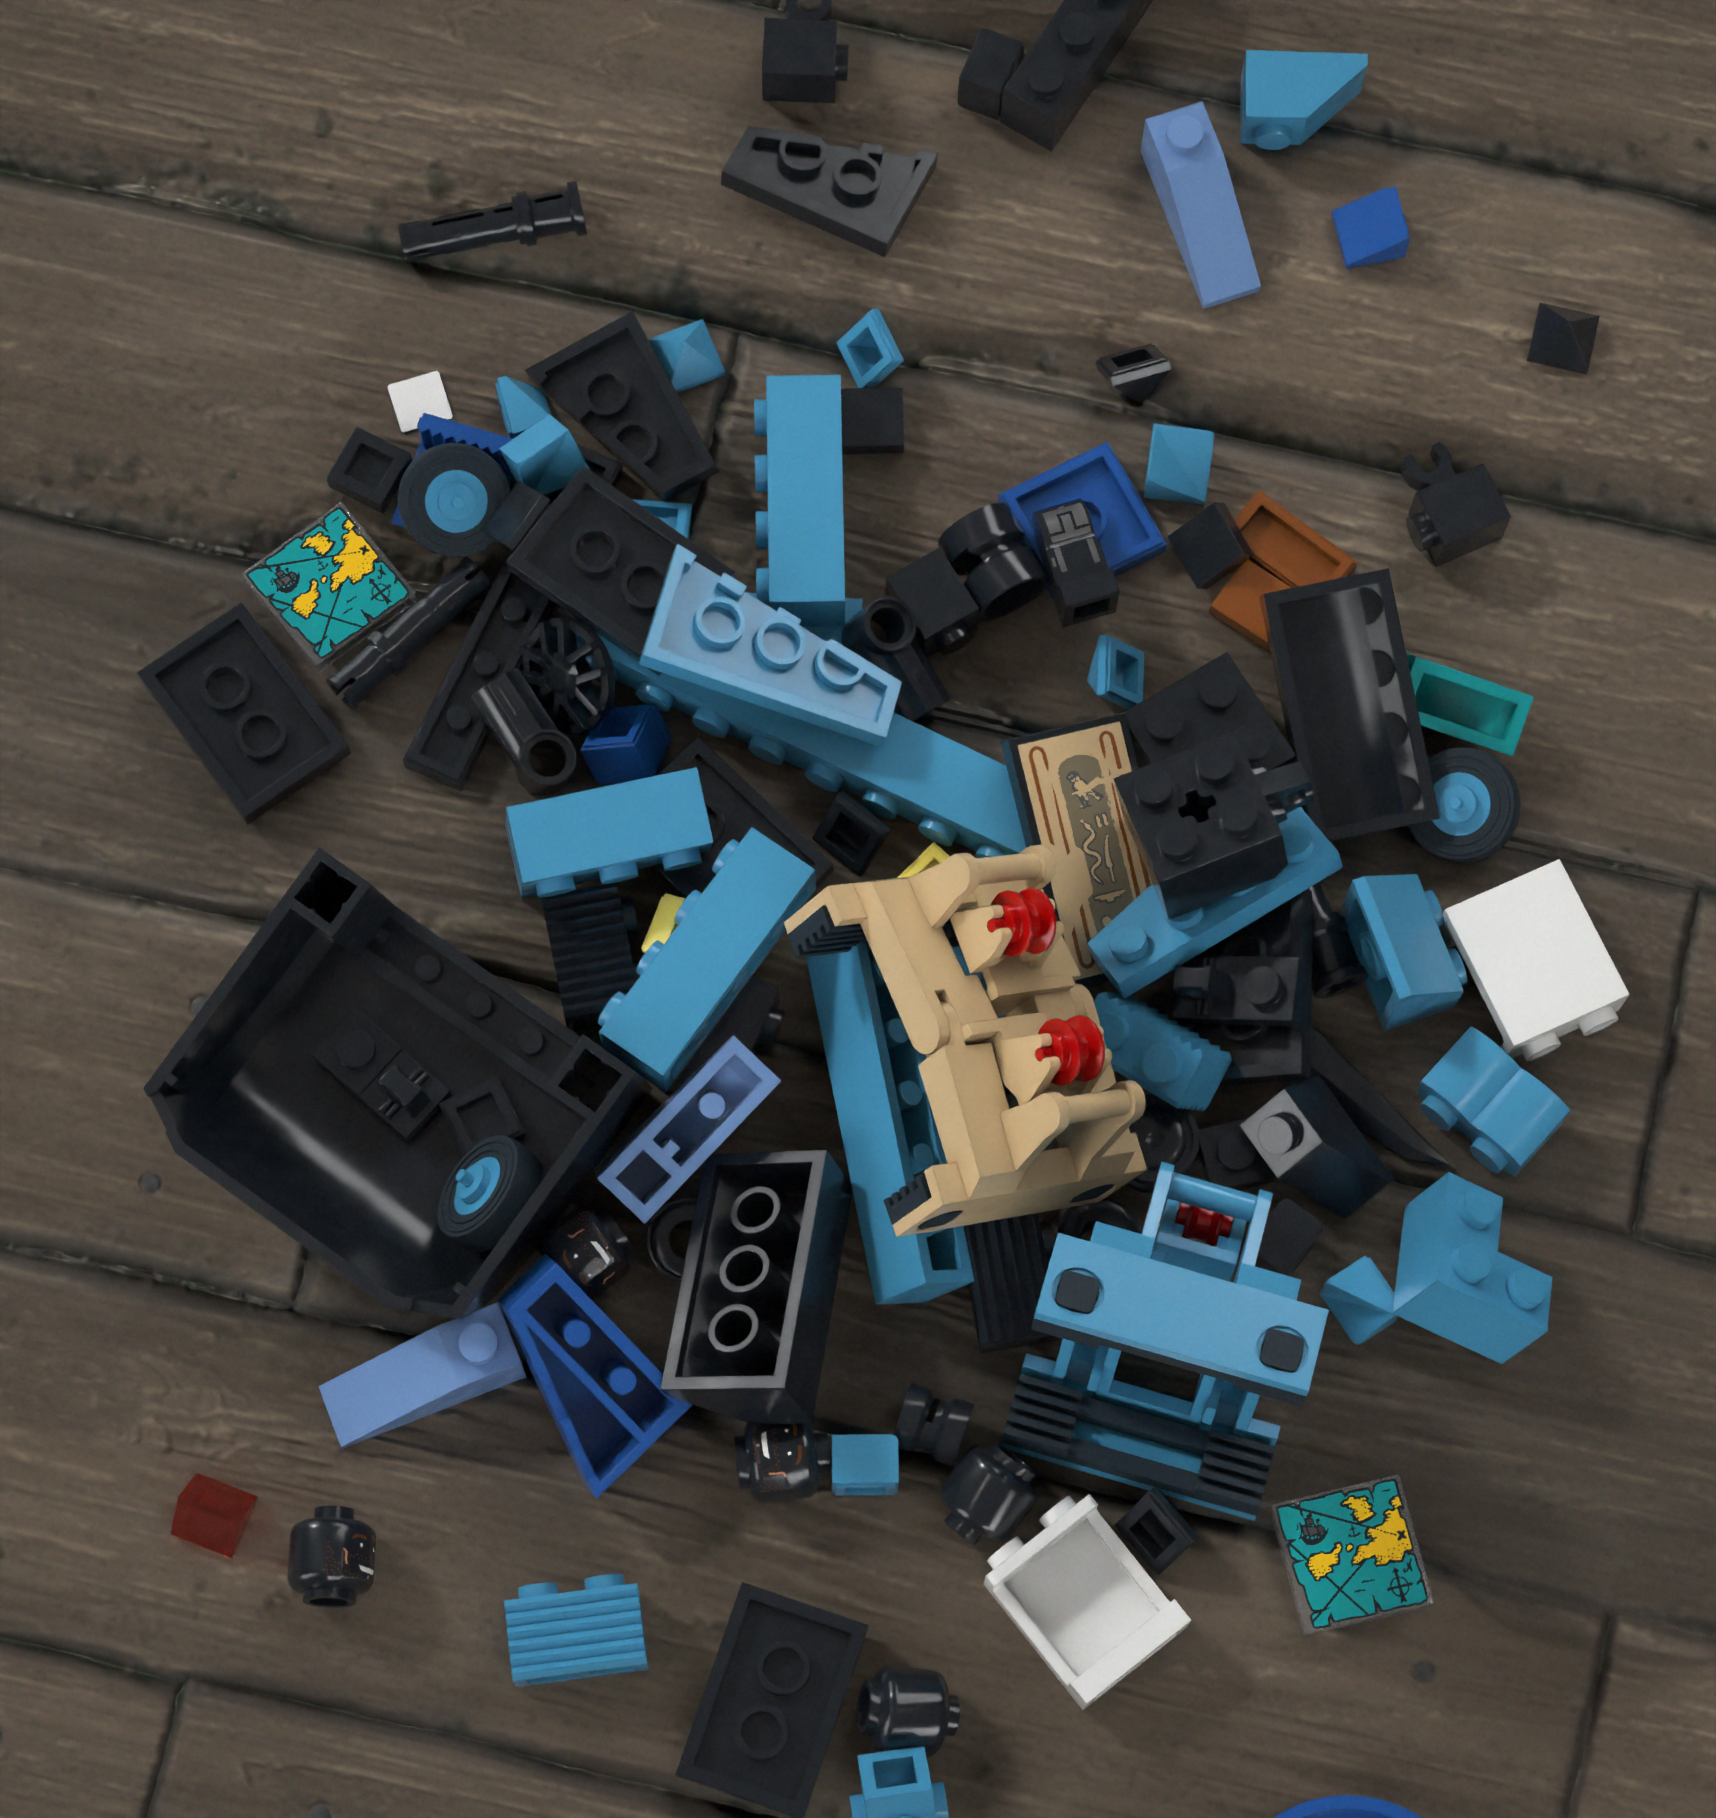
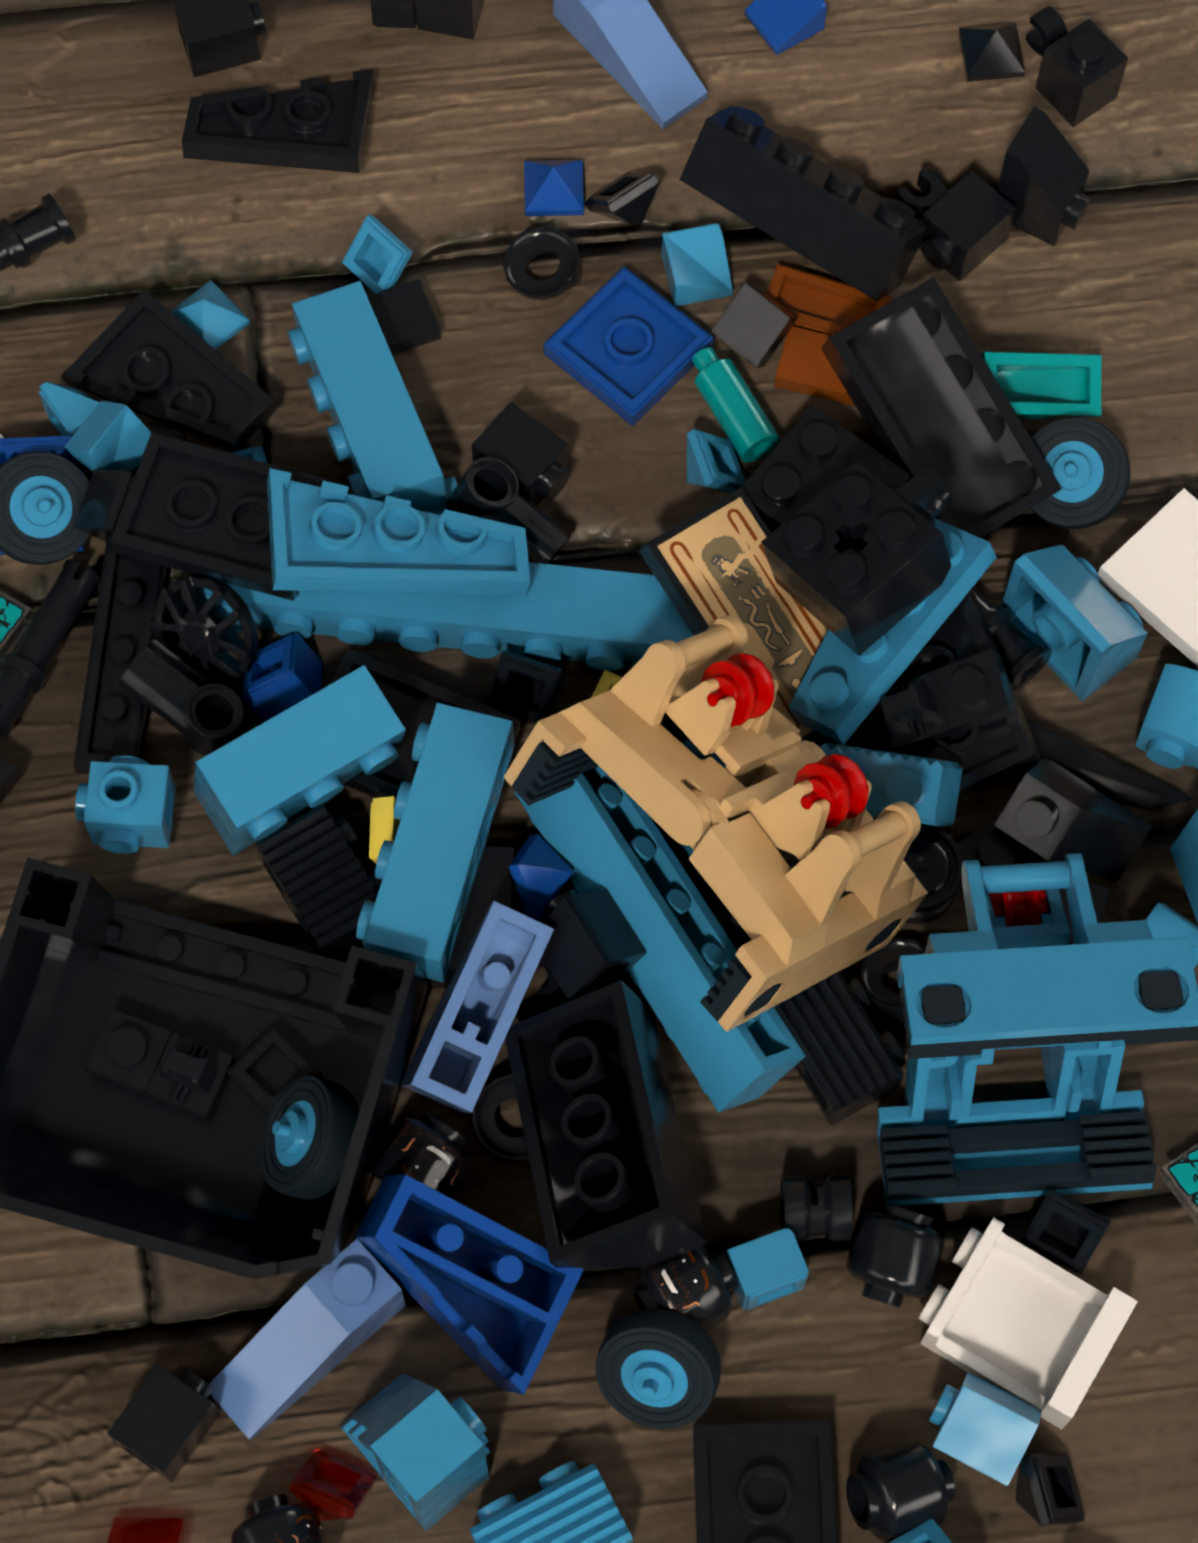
camera: 20 degrees left, 5 degrees down
(271, 1403) = (166, 1420): none -> black brick
(398, 1516) = (332, 1486): none -> clear red slope
(437, 817) = (127, 804): none -> dark azure brick
(485, 1513) = (421, 1446): none -> dark azure wedge
(729, 1519) = (658, 1368): none -> black wheel
(791, 1021) = (538, 875): none -> blue slope
(812, 1103) = (588, 945): none -> black brick
(990, 555) = (563, 400): black wheel -> none
(1006, 1681) = (984, 1427): none -> dark azure brick
(1021, 389) = (537, 242): none -> black piece
(1046, 1760) = (1049, 1490): none -> black slope
(1071, 335) = (553, 187): none -> blue slope
(1075, 563) = (639, 377): black leg -> none
(1159, 621) = (734, 406): none -> teal cylinder
(1305, 438) = (804, 201): none -> black brick
(1551, 497) = (1044, 180): none -> black slope
(1635, 386) = (1078, 67): none -> black brick

